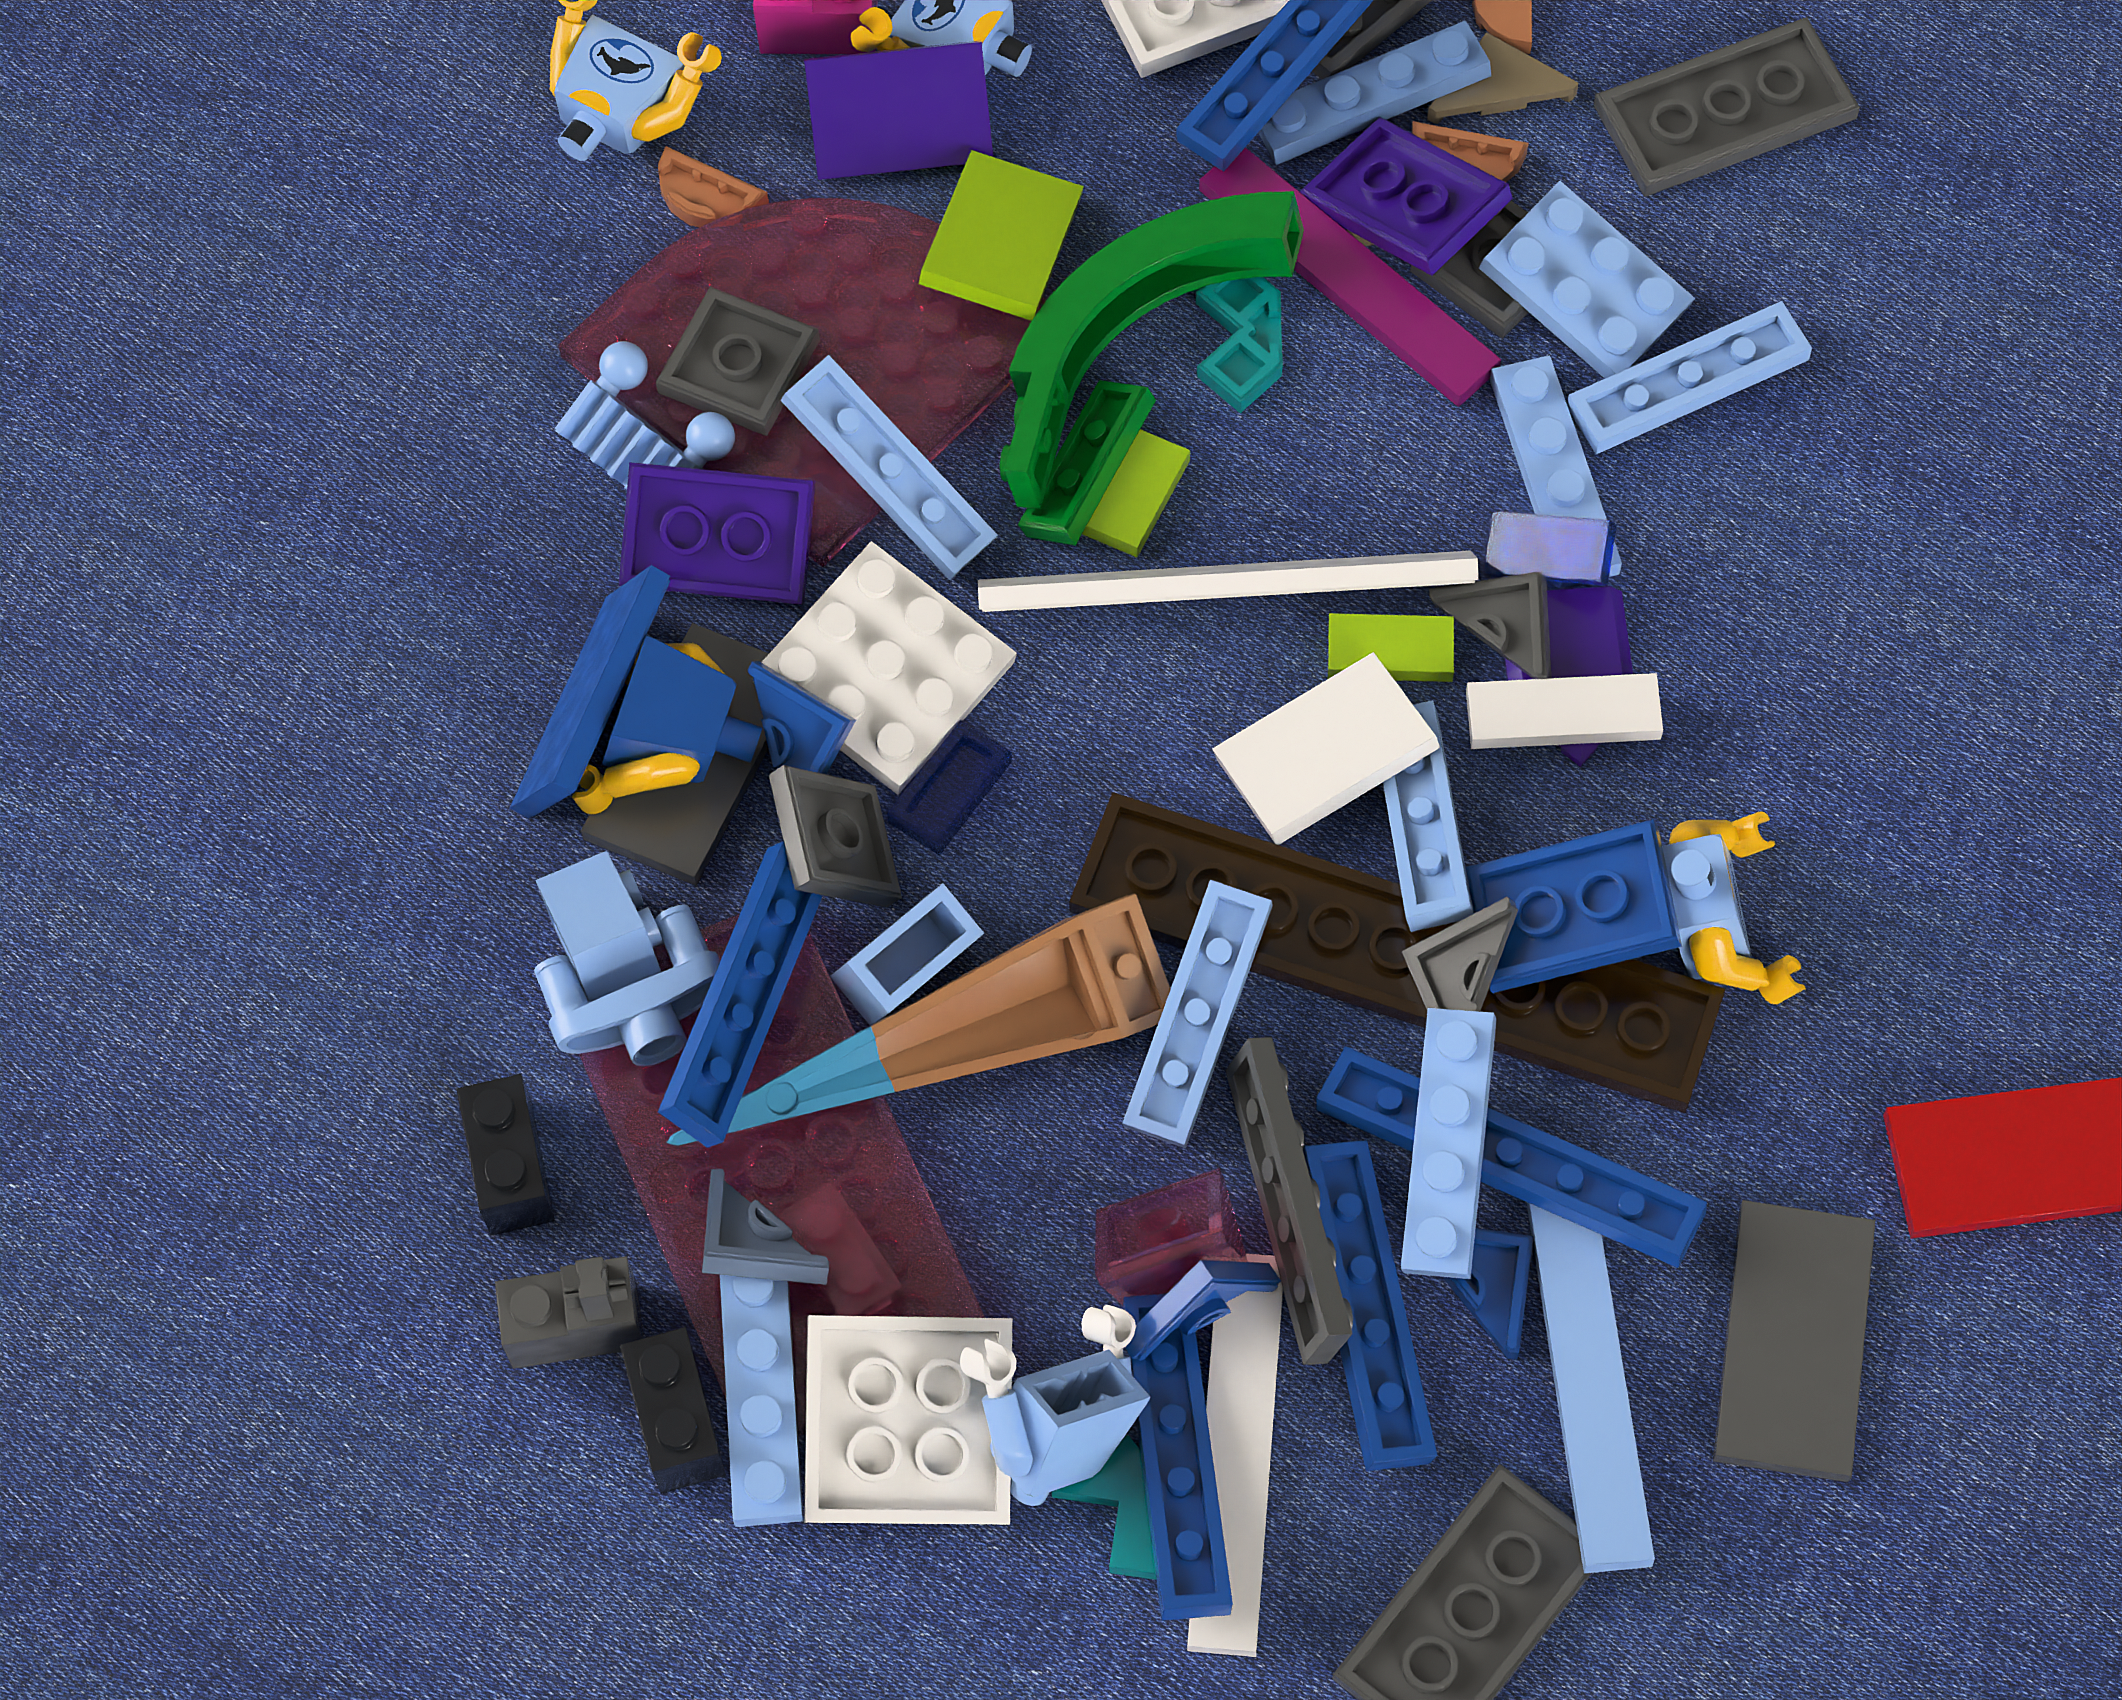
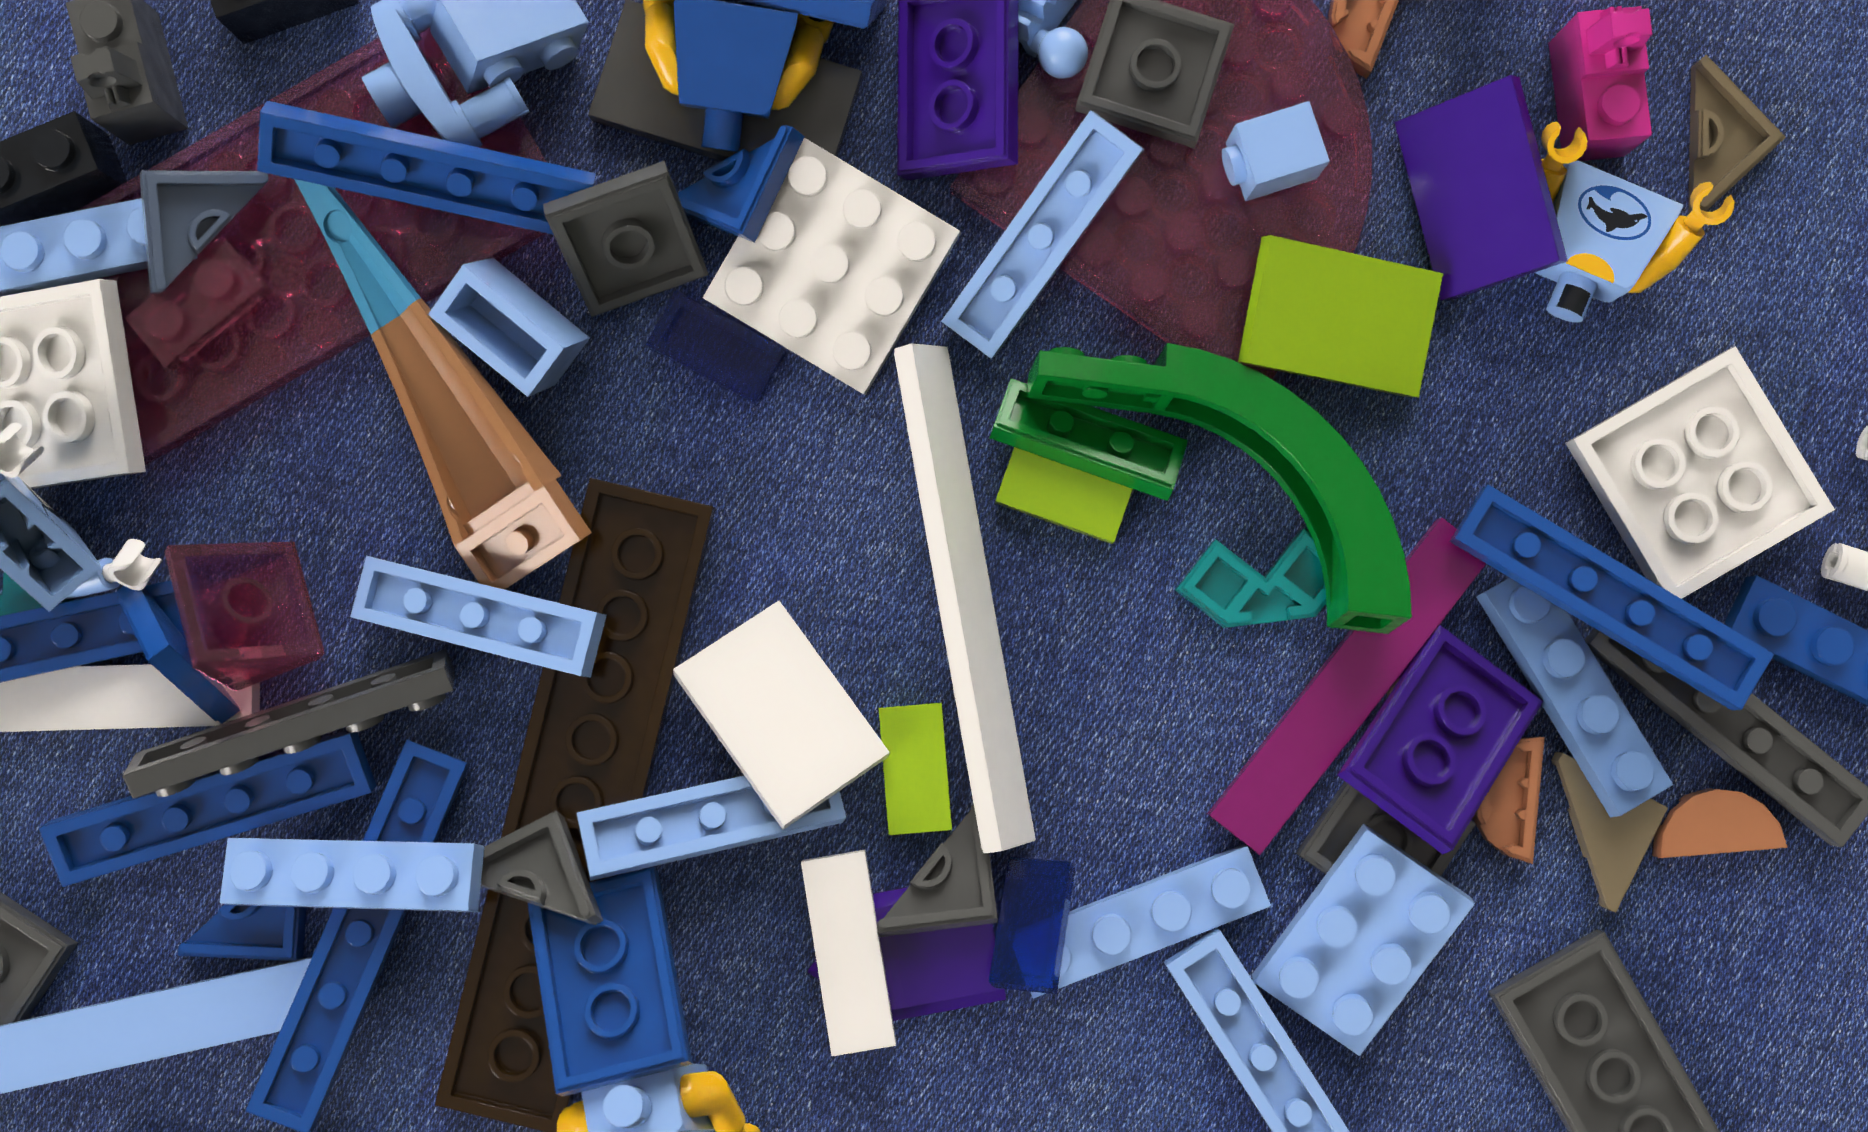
camera: 80 degrees right, 20 degrees up
(840, 262) = (1275, 151): none -> light blue brick

